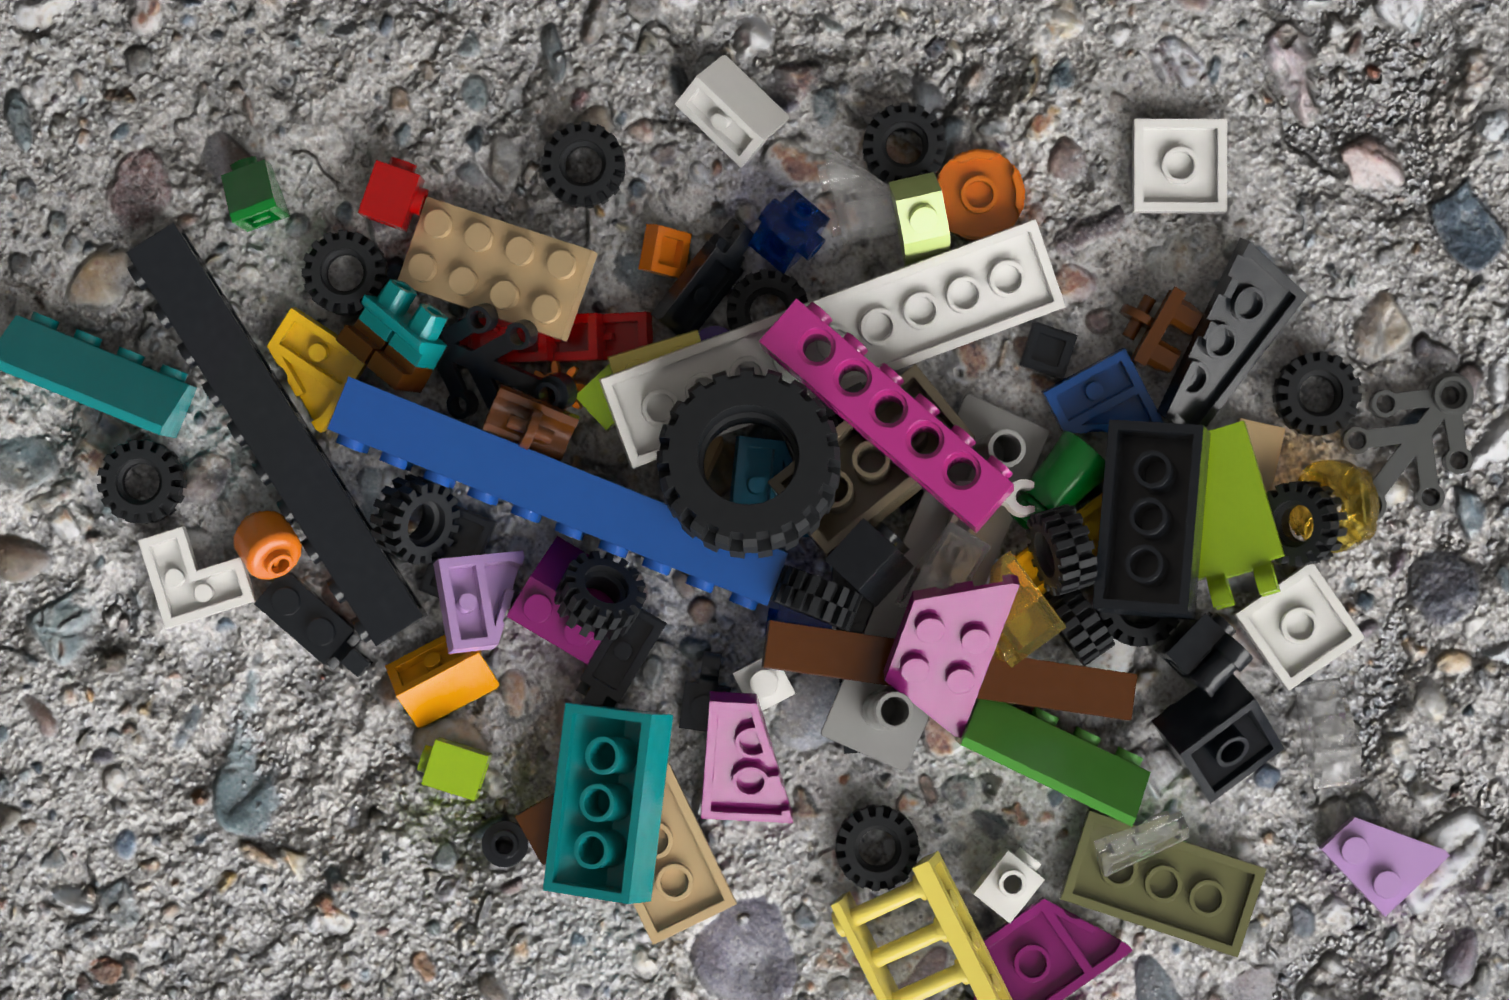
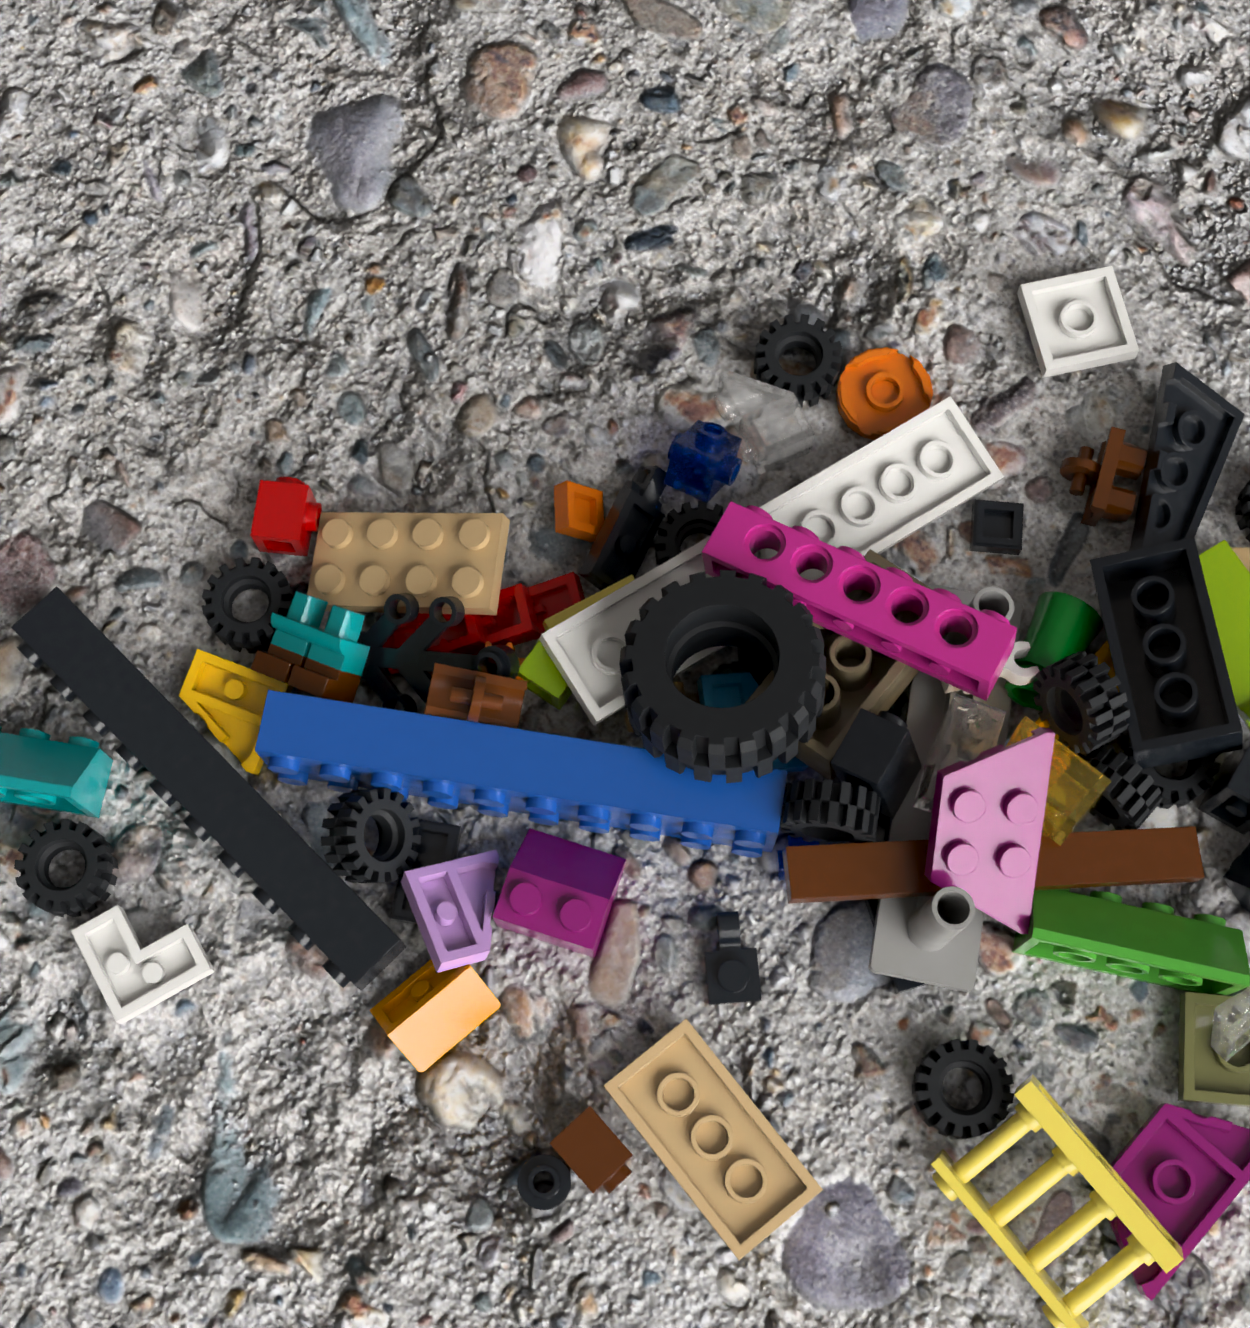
camera: 15 degrees left, 15 degrees down
(253, 194) = (140, 547): green slope -> none
(267, 544) = (214, 903): orange head -> none
(313, 624) = (280, 982): black hinge -> none
(454, 768) = (469, 1106): lime brick -> none
(573, 138) = (471, 421): black tyre -> none
(589, 611) = (591, 869): black tyre -> none
(608, 803) = (651, 1100): teal slope -> none
(619, 661) = (624, 946): black hinge -> none
(731, 110) = (613, 366): white panel -> none
(740, 763) = (787, 1026): wing -> none
(769, 684) = (791, 932): white brick -> none
(920, 217) = (836, 416): yellowish green slope -> none
(1009, 882) = (1120, 1095): white brick -> none
(1101, 393) = (1062, 556): blue wing -> none

